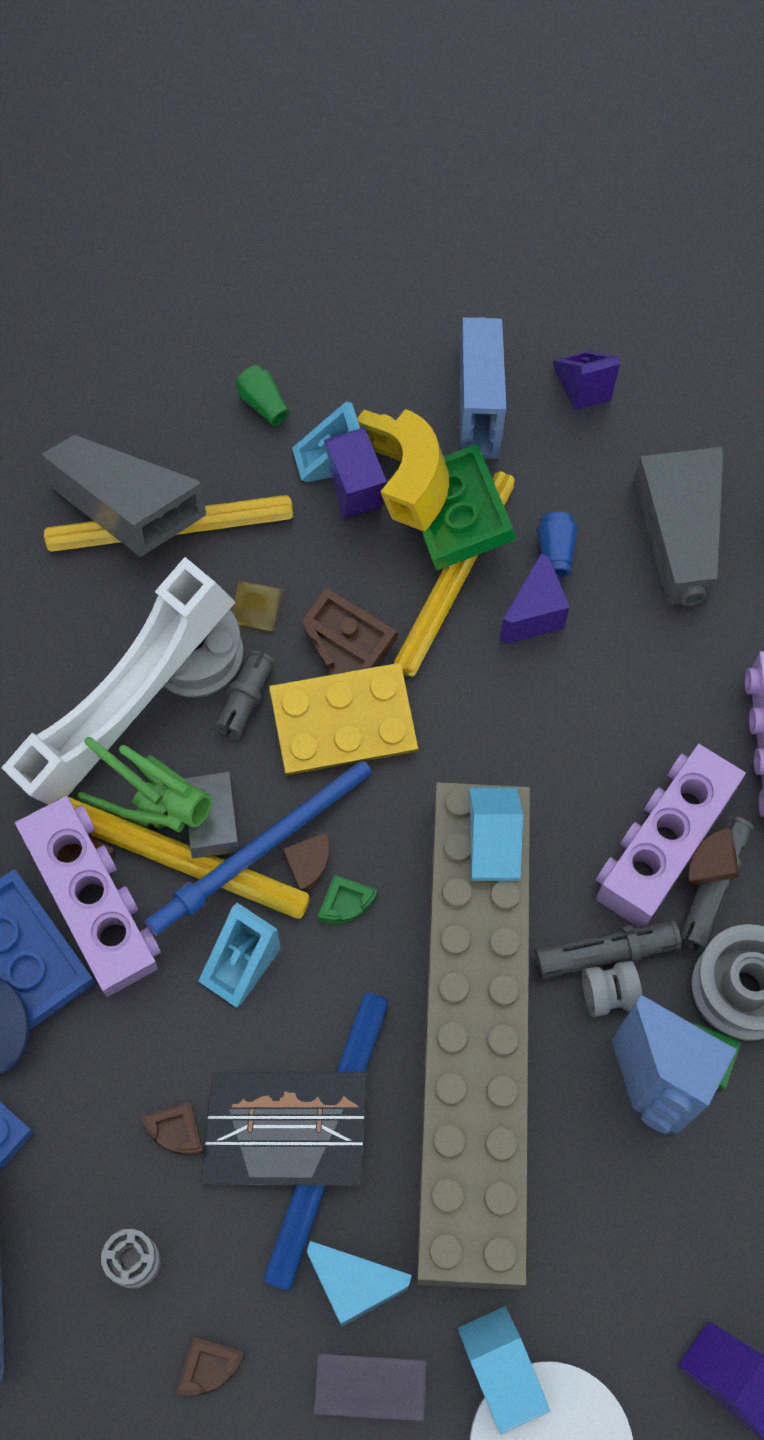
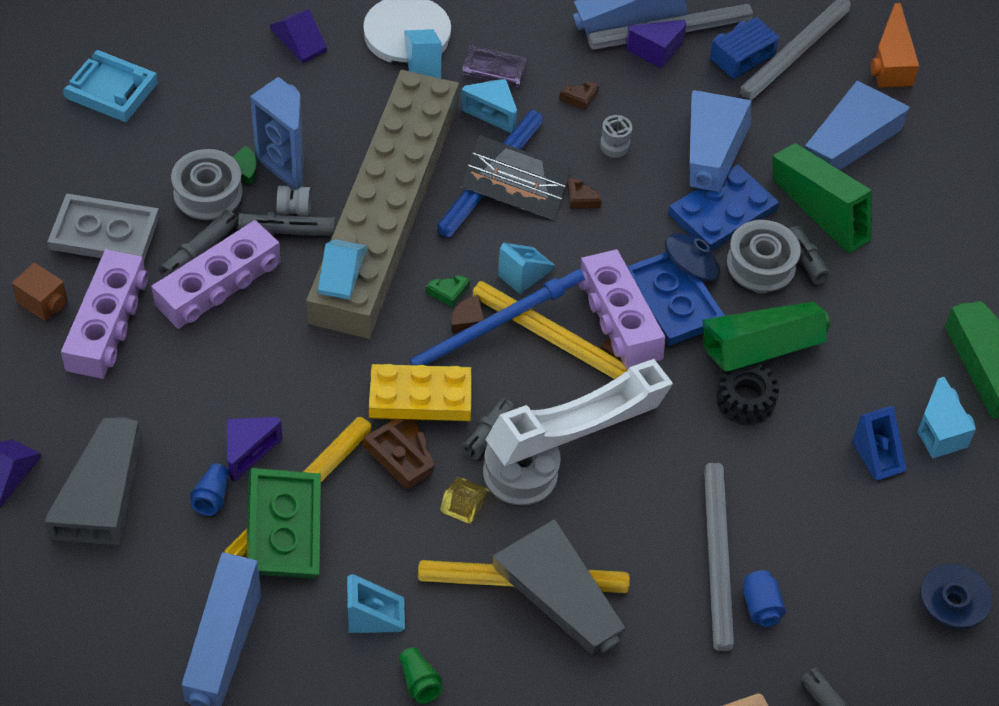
camera: 170 degrees left, 10 degrees down
(148, 798) = (570, 366): bright green plant -> none
(182, 800) = (548, 341): bright green plant -> none
(218, 832) = (529, 348): flat silver tile -> none
(355, 472) = (360, 549): dark purple slope -> none
(422, 480) = (300, 559): yellow arch -> none
(588, 377) = (121, 633): dark purple slope -> none
(714, 859) = (197, 242): reddish brown tile -> none

